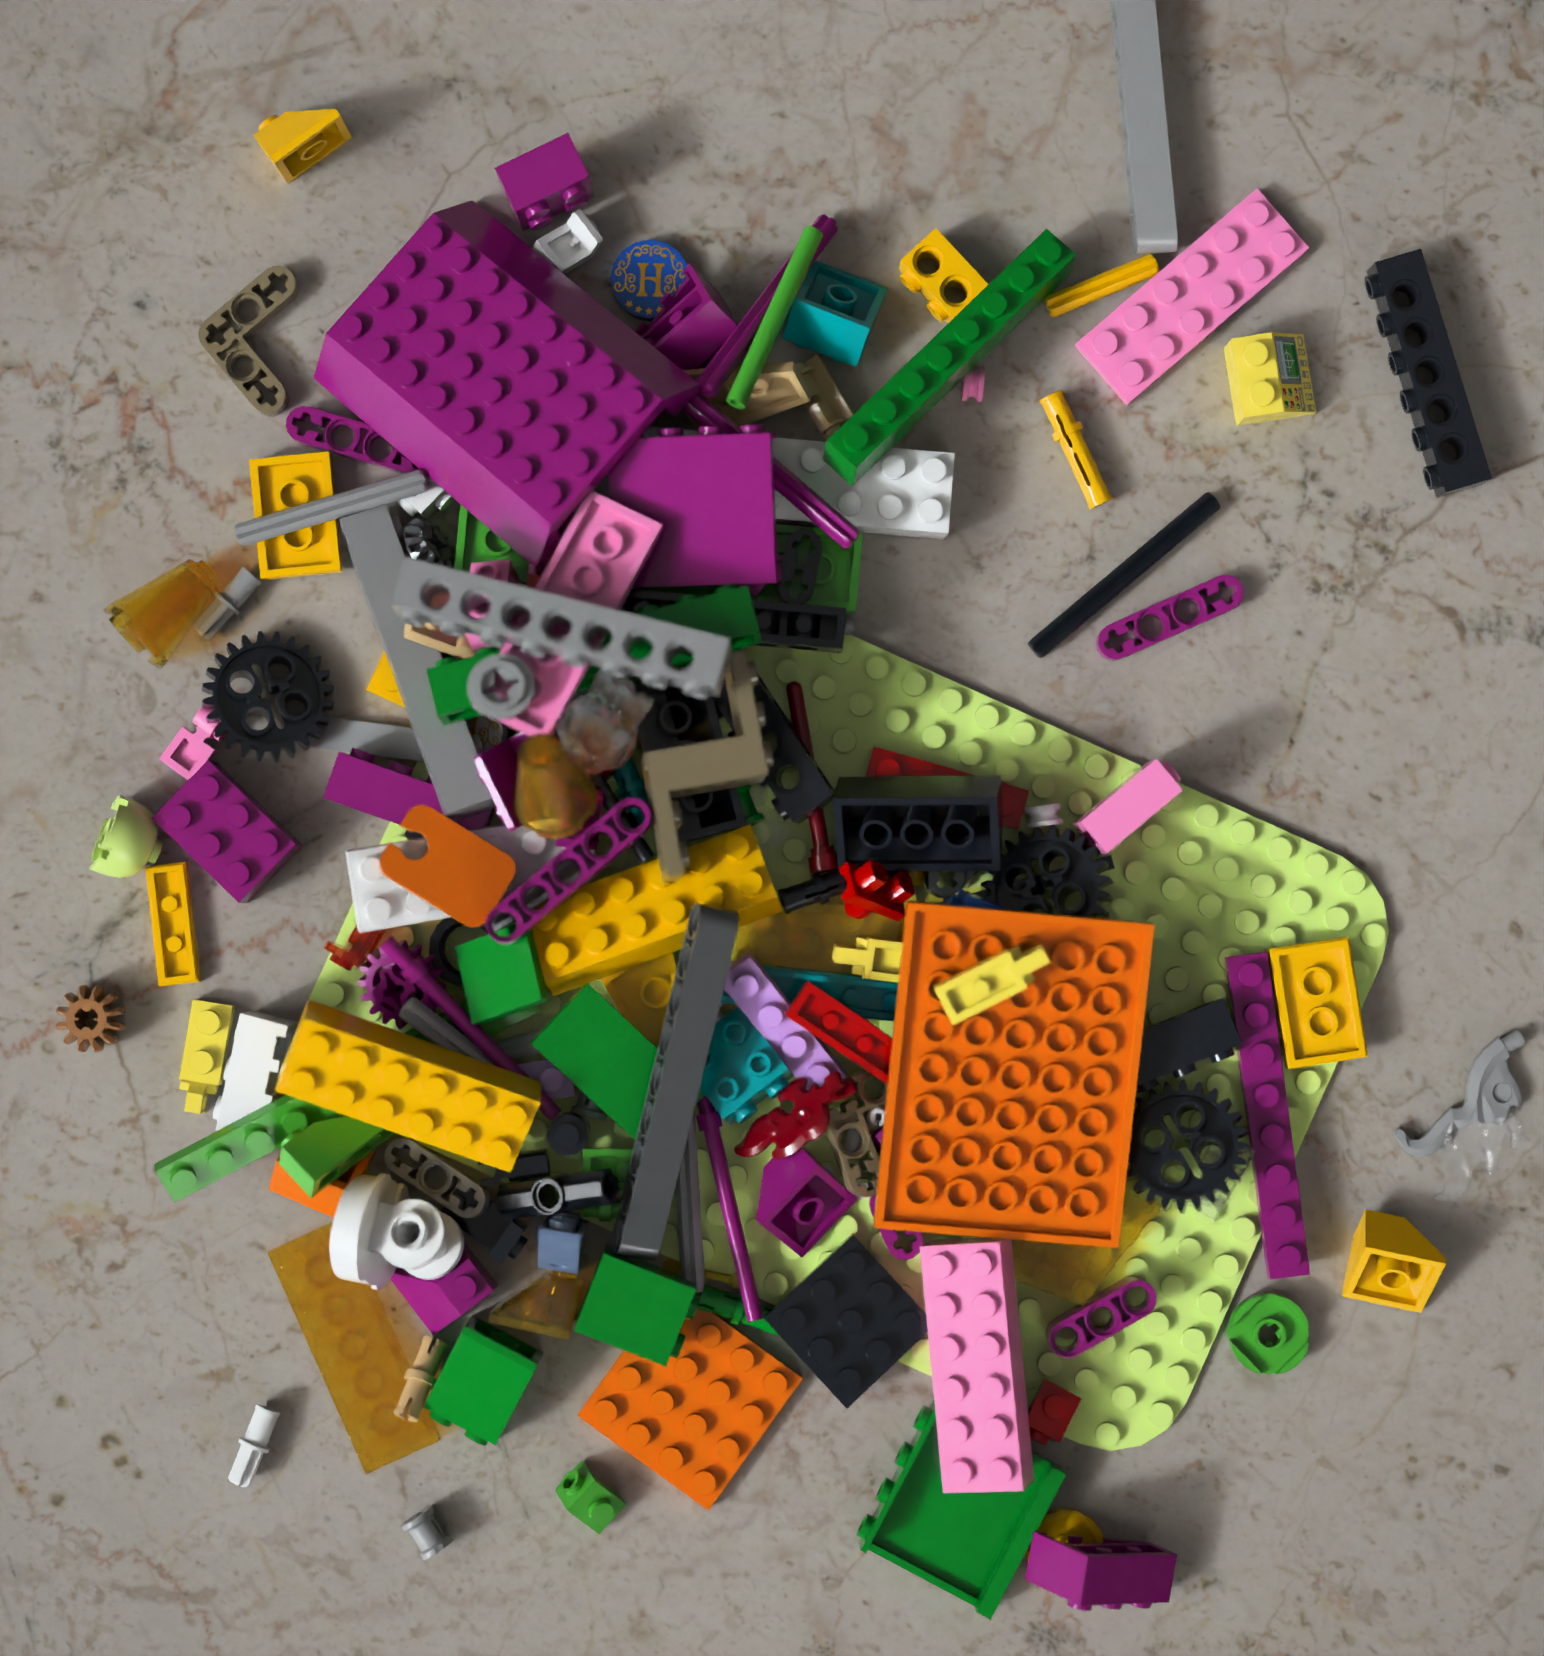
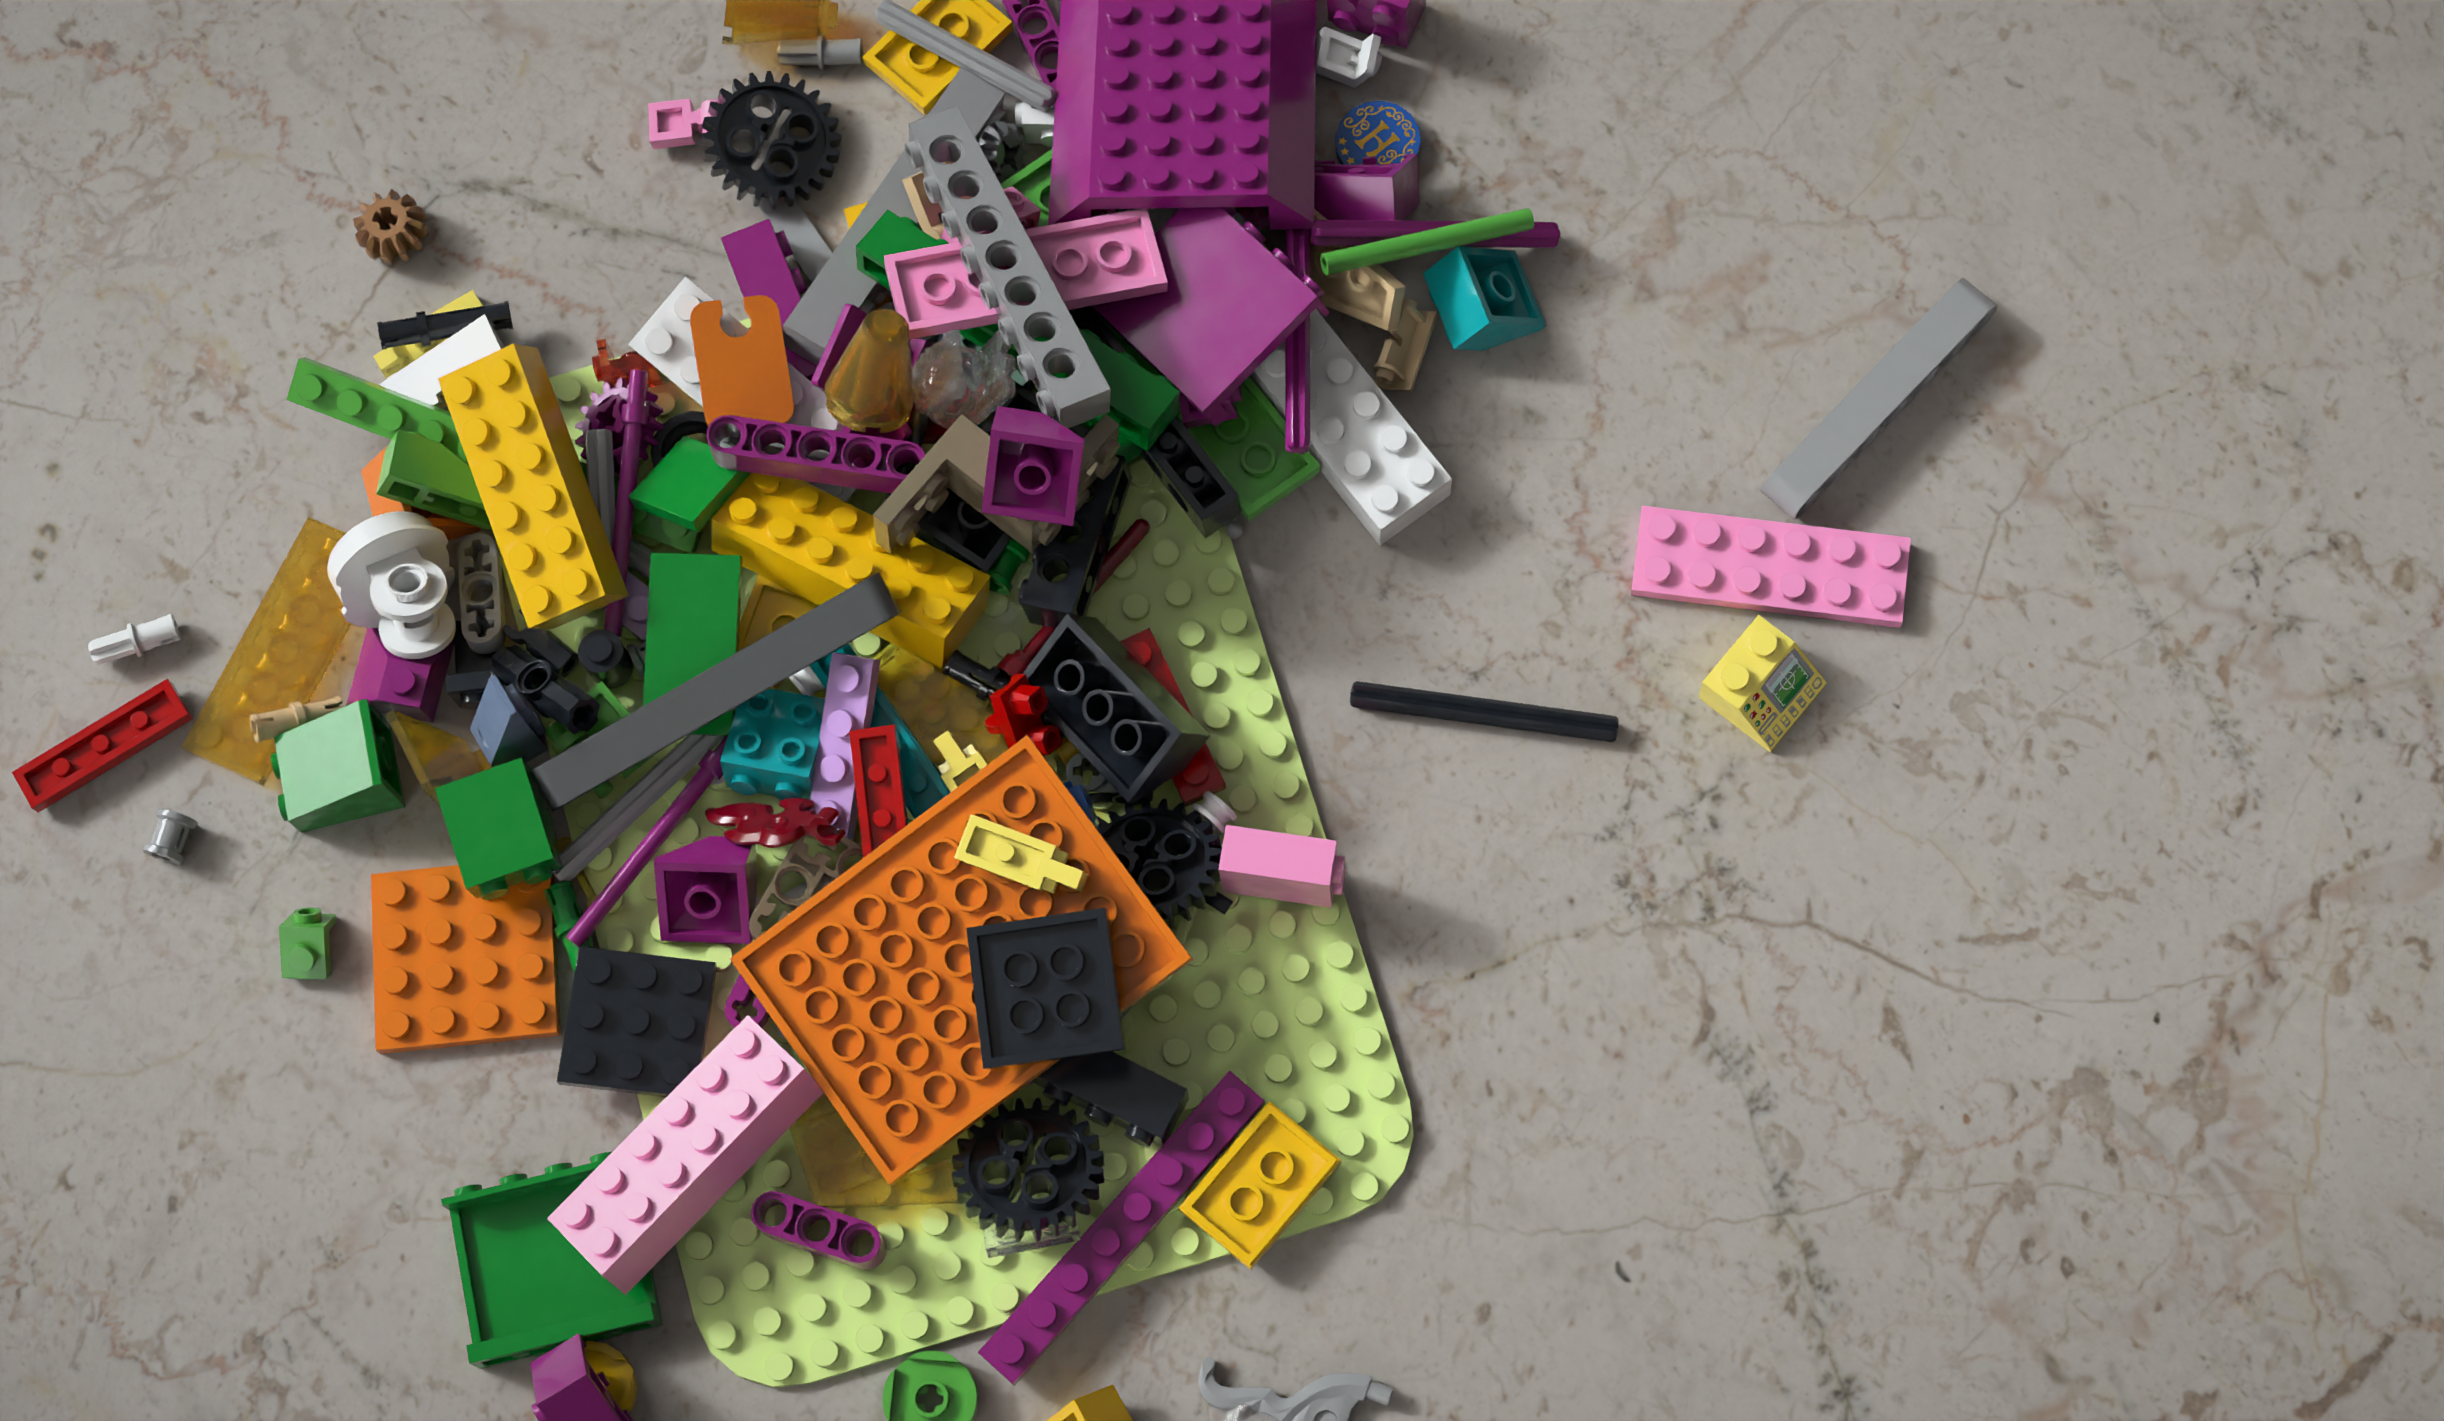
camera: 65 degrees right, 15 degrees down
(126, 840) = (559, 131): yellowish green cylinder -> none
(173, 923) = (523, 227): yellow tile -> none
(210, 1043) = (440, 325): none -> black pin
(227, 831) = (633, 201): magenta brick -> none
(315, 1528) = (102, 745): none -> red plate
(483, 680) = (912, 246): light grey gear -> none
(733, 738) = (1032, 467): none -> magenta slope
(809, 569) = (1237, 429): black beam -> none
(948, 357) = (1526, 404): green brick -> none
(952, 272) = (1599, 357): yellow brick -> none
(973, 384) = (1528, 453): bright pink bush -> none
(1051, 1412) = (698, 1263): red bracket -> none
(1075, 448) = (1558, 567): yellow pin -> none
(1092, 1038) = (1045, 988): none -> black plate
(1101, 285) = (1709, 486): yellow axle -> none
(1167, 613) = (1485, 772): magenta beam -> none
(1410, 275) = (1956, 717): black brick -> none

